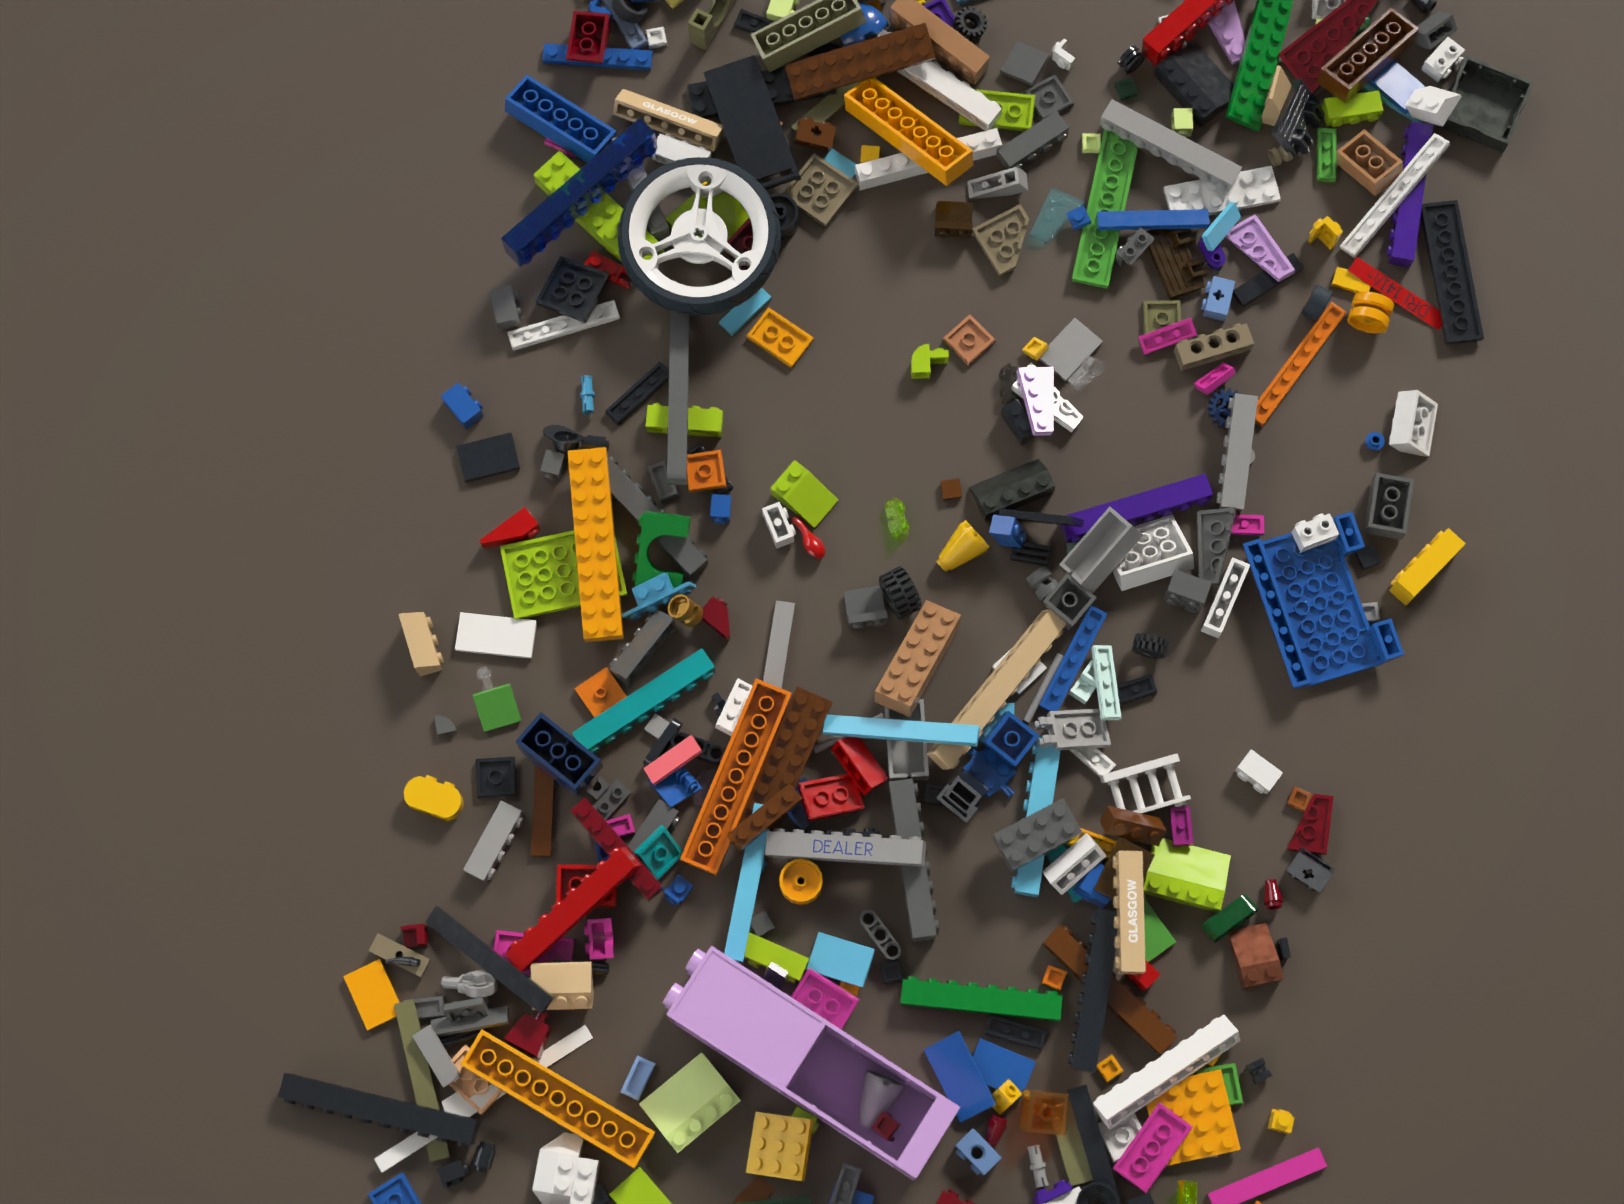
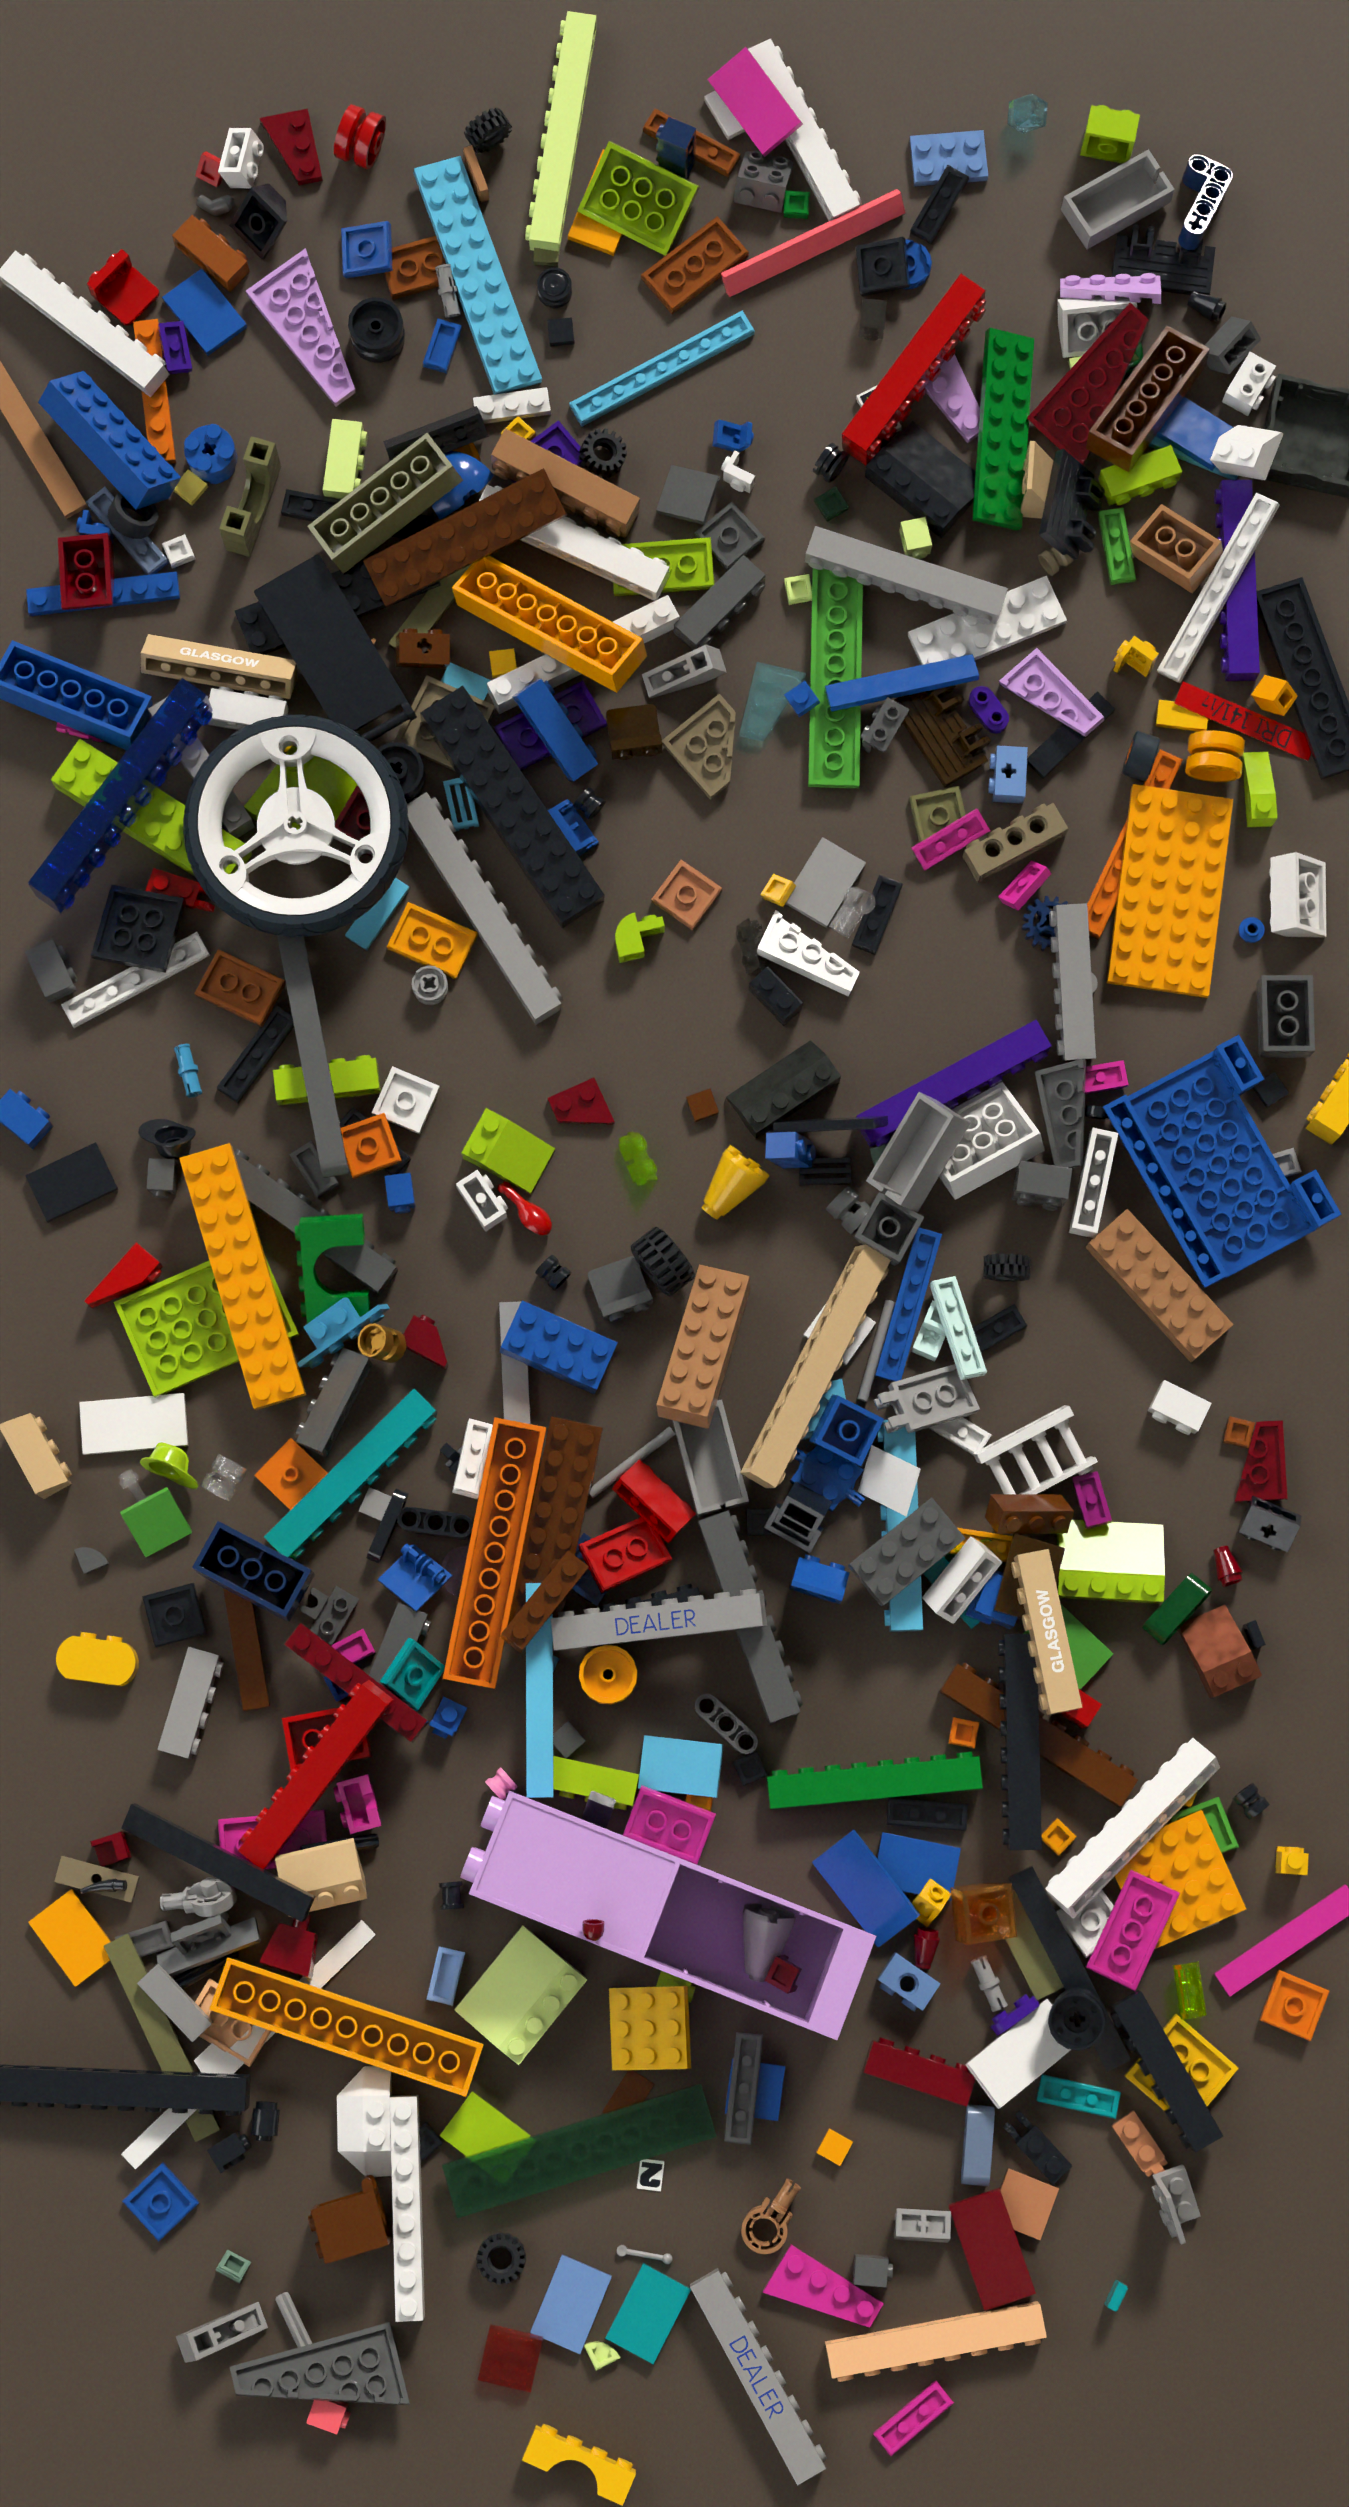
camera: 15 degrees left, 5 degrees up
(516, 668) = (171, 1463): none -> lime piece
(552, 685) = (223, 1468): none -> clear wheel
(594, 442) = (212, 1136): black brick -> none
(636, 344) = (240, 988): none -> dark orange tile
(654, 1019) = (451, 1895): none -> black bush
(673, 760) = (406, 1547): coral tile -> none
(706, 943) = (501, 1784): none -> bright pink wheel
(738, 445) = (406, 1100): none -> white plate
(752, 1058) = (593, 1929): none -> dark red hinge
(772, 368) = (430, 985): none -> light grey wheel
(812, 639) = (558, 1347): none -> blue brick
(819, 586) = (553, 1272): none -> black wheel
(820, 261) = (465, 824): none -> medium azure tile
(820, 322) = (482, 909): none -> light grey brick
(856, 254) = (512, 807): none -> black brick
(863, 472) = (581, 1105): none -> dark red wing
(894, 205) = (525, 744): none -> dark purple tile
(895, 278) = (573, 827): none -> blue hinge
(897, 206) = (555, 729): none -> blue brick
(901, 730) = (701, 1448): medium azure tile -> none
(912, 263) = (589, 803): none -> black wheel
(969, 844) = (819, 1579): none -> blue slope
(1034, 781) = (889, 1480): none -> white sticker
(1037, 393) = (794, 955): wing -> none
(1064, 29) = (732, 436): none -> blue bracket
(1101, 384) = (874, 923): none -> black tile
(1221, 226) = (994, 674): medium azure tile -> none
(1236, 548) = (1095, 1112): none -> black tile
(1260, 681) = (1159, 1285): none -> medium nougat brick
(1314, 532) = (1195, 1072): white brick -> none
(1320, 402) = (1170, 891): none -> light orange plate
(1398, 344) = (1259, 790): none -> lime slope
(1421, 278) = (1274, 695): none -> light orange brick

